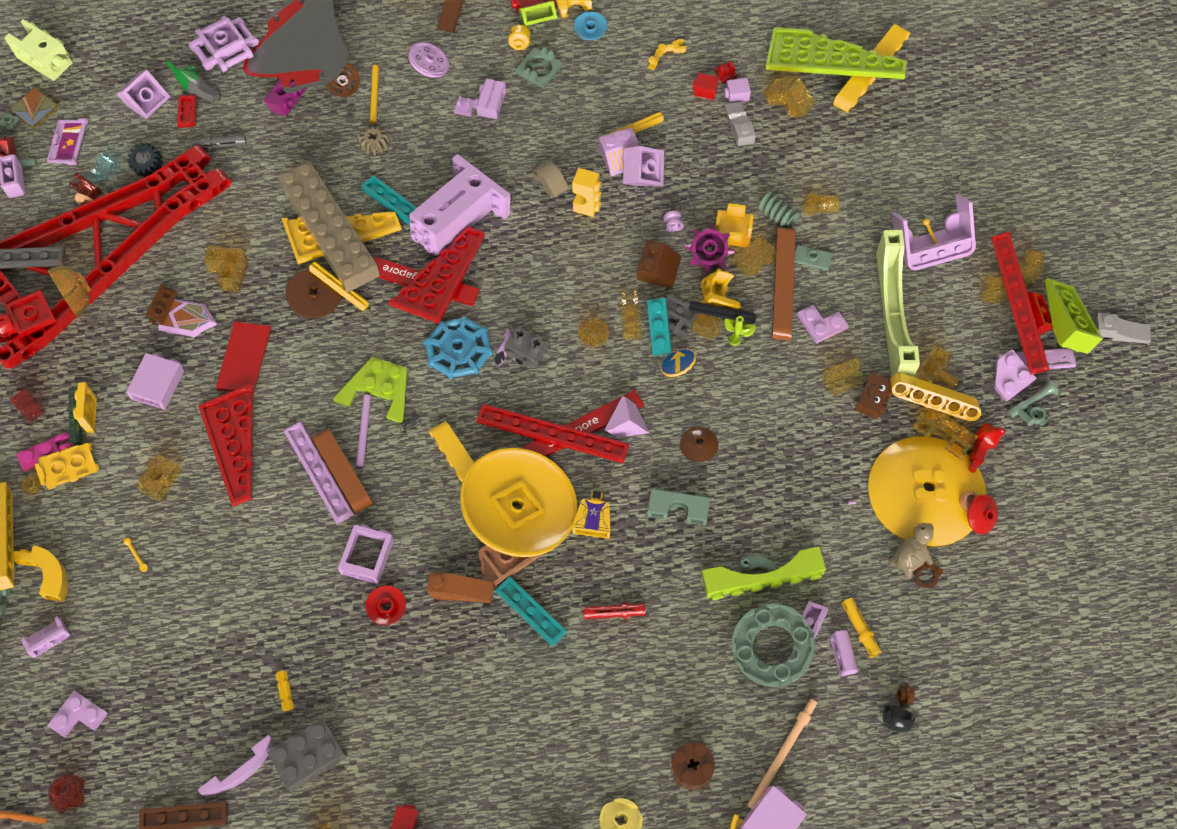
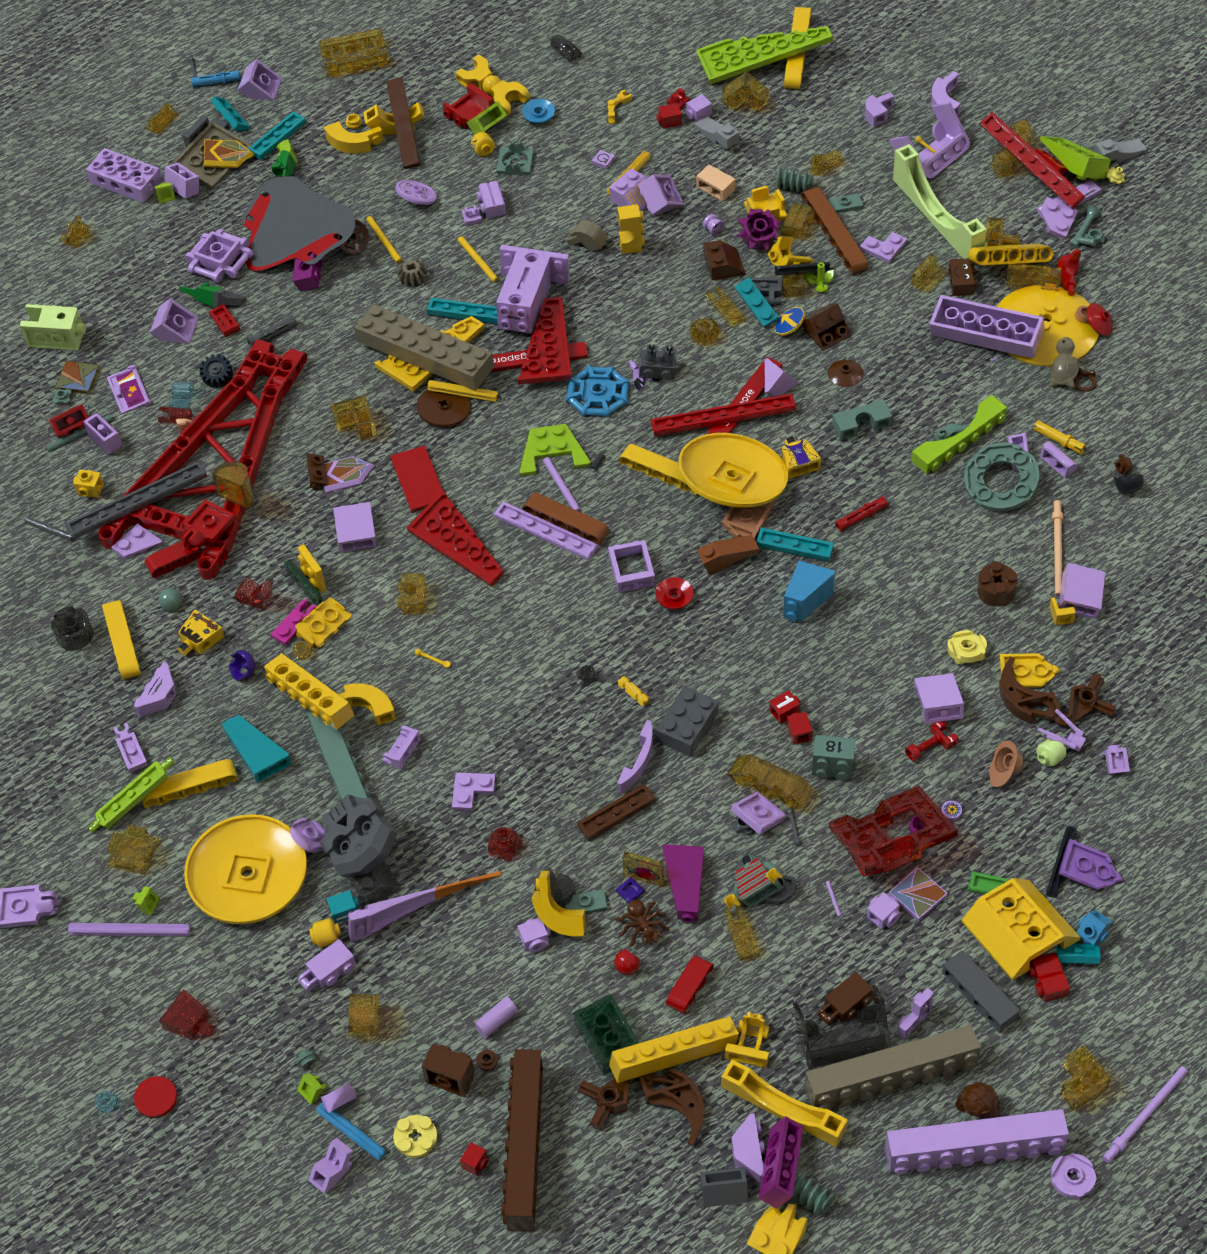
camera: 25 degrees left, 10 degrees down
(251, 645) = (587, 669): none -> clear smoke plate
(407, 790) = (784, 706): none -> red brick
(442, 156) = (478, 259): none -> yellow bar
(502, 674) = (807, 590): none -> dark azure slope
(618, 103) = (603, 159): none -> lavender tile
(704, 177) = (715, 182): none -> light nougat brick
(710, 385) = (826, 326): none -> reddish brown slope
(862, 467) = (987, 326): none -> lavender brick
(905, 168) = (877, 108): none -> lavender brick
(977, 180) = (942, 88): none -> lavender arch
(1100, 356) = (1115, 175): none -> light yellow plant

